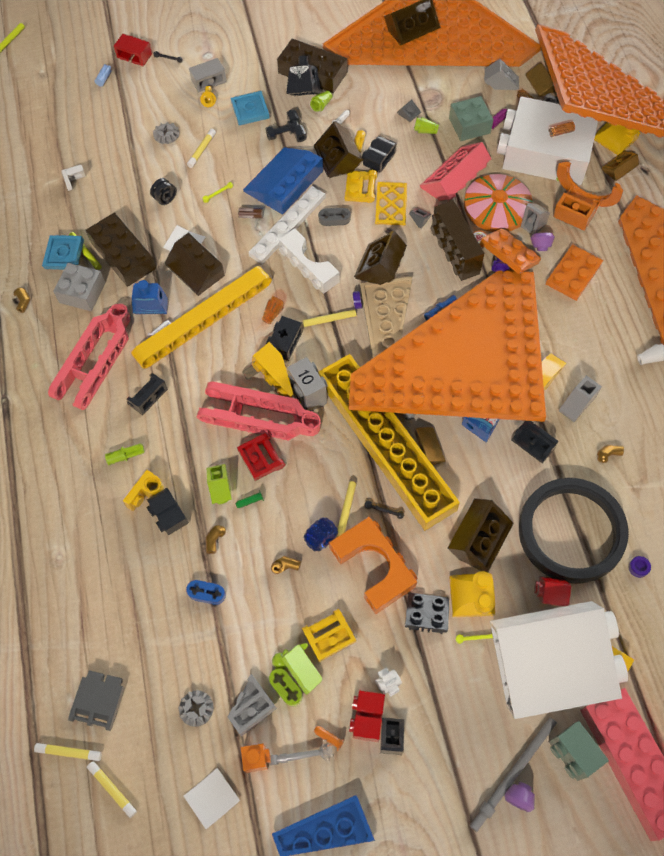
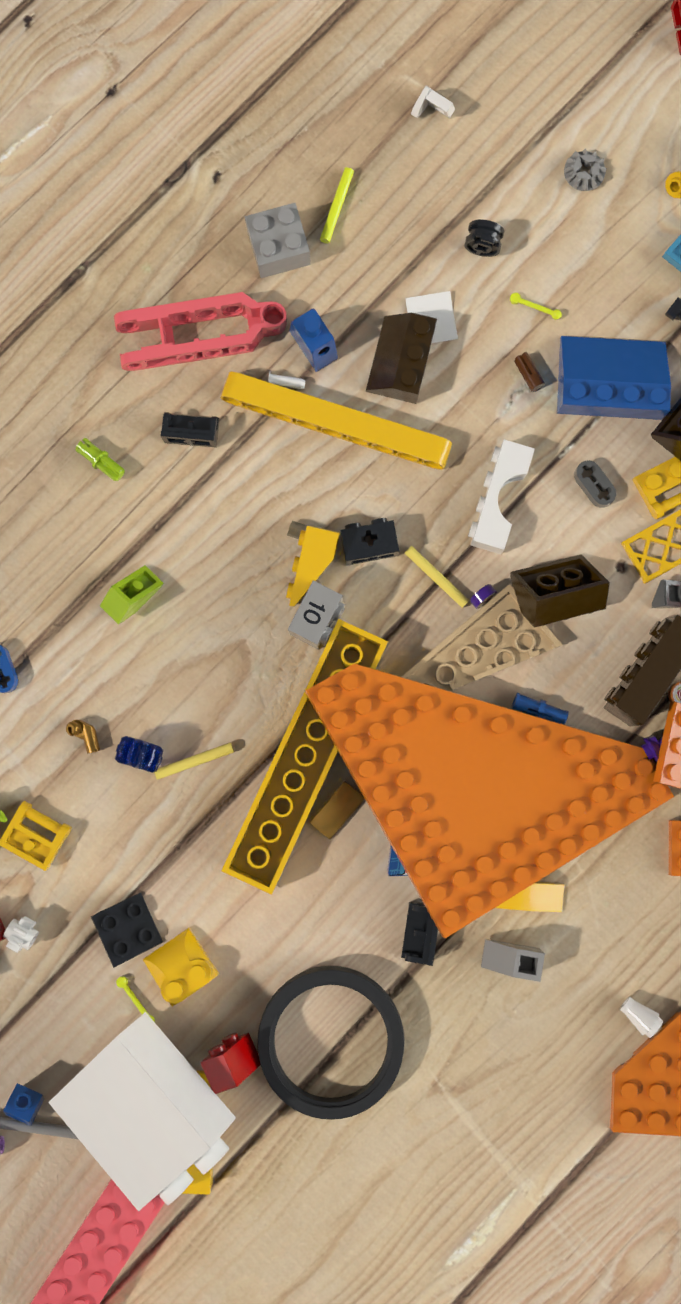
camera: 55 degrees right, 20 degrees up
(23, 297) = (222, 183): pearl gold arm -> none
(62, 250) = (313, 182): dark azure plate -> none
(103, 75) = (625, 13): light blue piece -> none
(121, 249) = (363, 249): dark brown brick -> none
(142, 489) = (70, 513): yellow plate -> none
(167, 511) = (61, 560): black brick -> none
(201, 148) = (591, 234): light yellow bar -> none
(212, 536) = (66, 631): pearl gold arm -> none
(249, 500) = (136, 643): green piece -> none
(255, 459) = (188, 615): red plate -> none
(272, 310) = (400, 500): clear orange cone -> none
(291, 220) = (544, 431): white plate -> none
(303, 423) = (269, 639): coral piece -> none
(368, 505) = (217, 783): black hinge -> none
(368, 537) = (144, 875): orange arch -> none
(481, 534) = (256, 937): dark brown slope -> none
(506, 749) = (23, 1104): none -> blue brick
(578, 752) = (63, 1185): sand green brick -> none
(609, 450) = (464, 1028): pearl gold arm -> none
(639, 566) = (335, 1142): dark purple tile -> none

